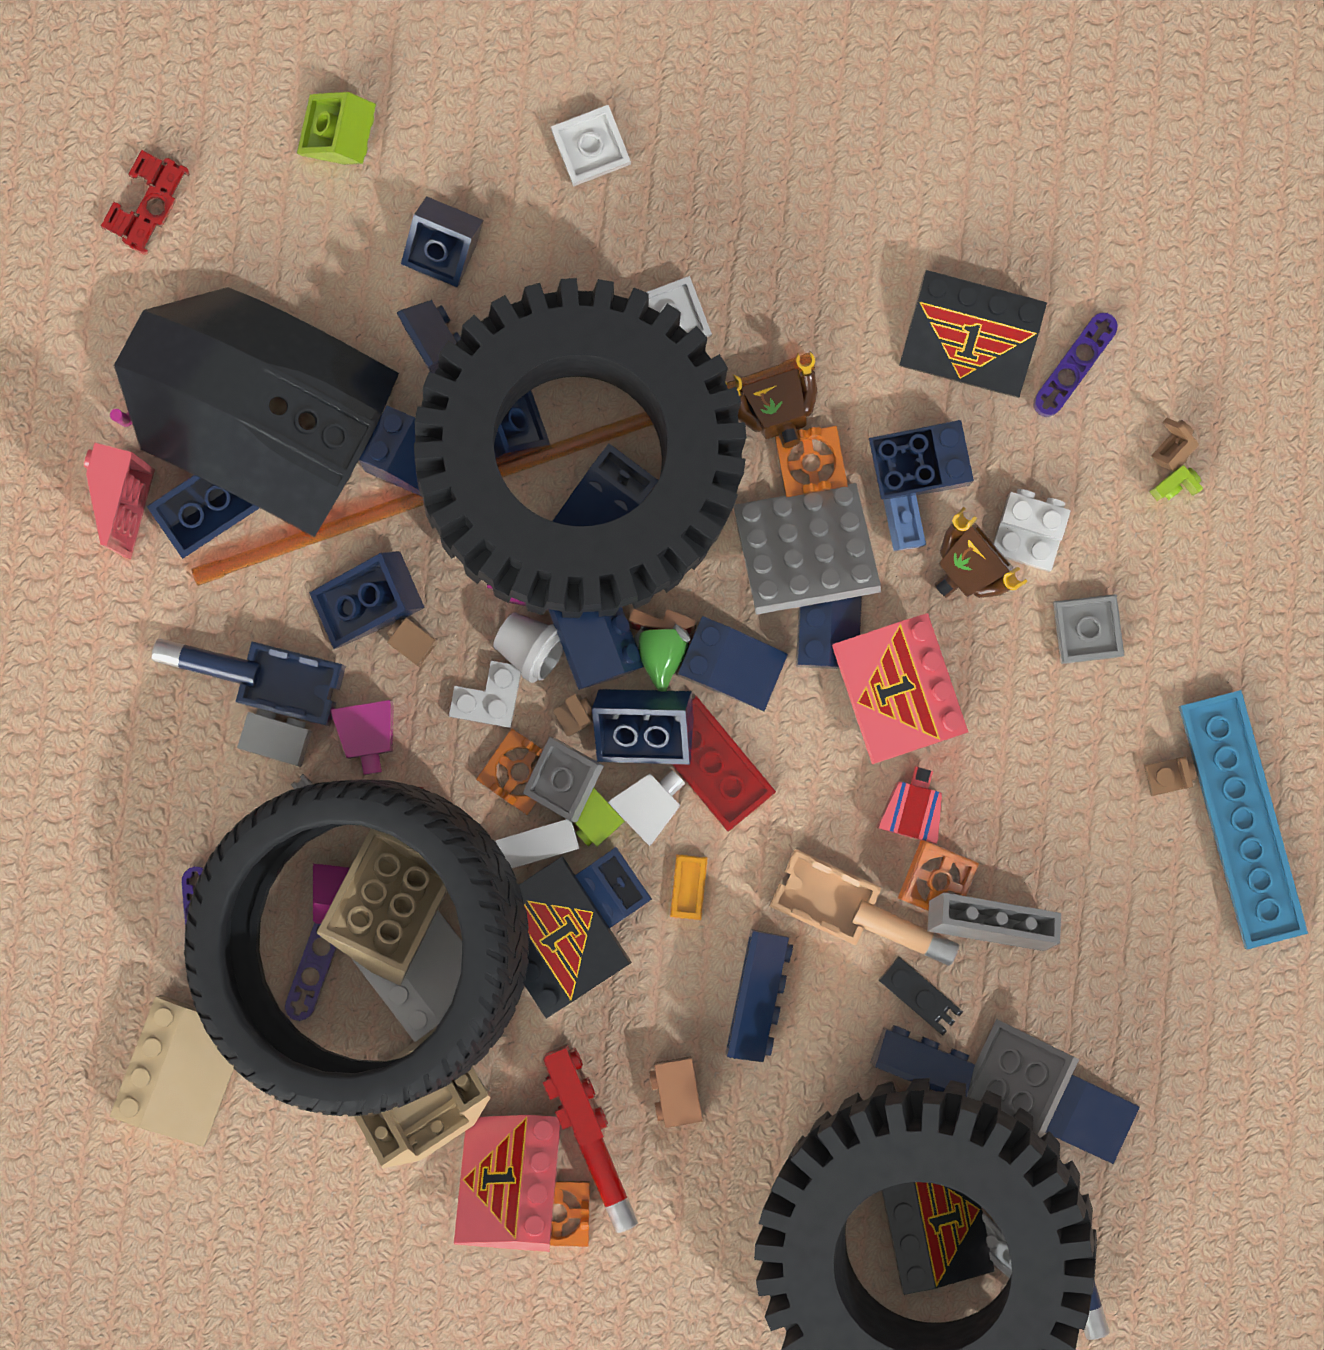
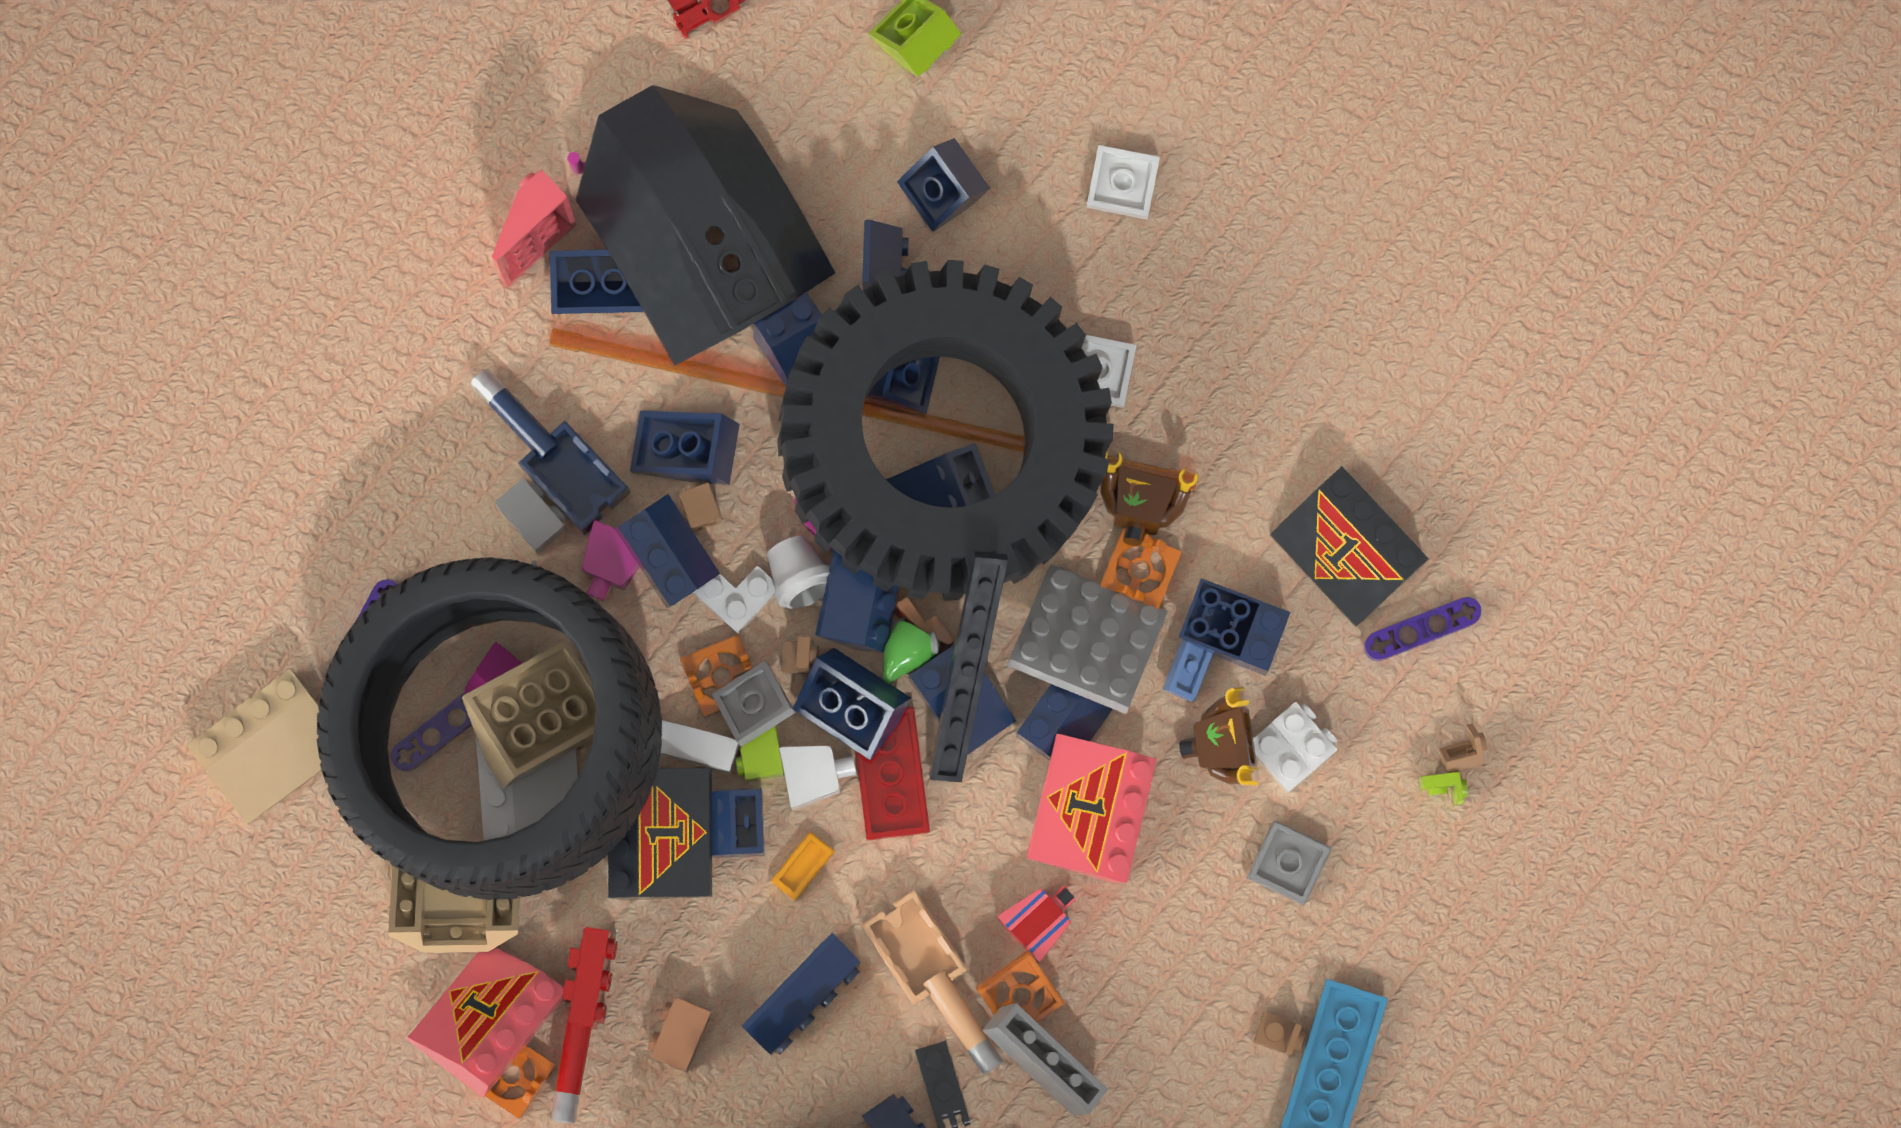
camera: 30 degrees right, 5 degrees down
(409, 697) = (667, 551): none -> dark blue slope
(725, 634) = (968, 666): none -> black plate

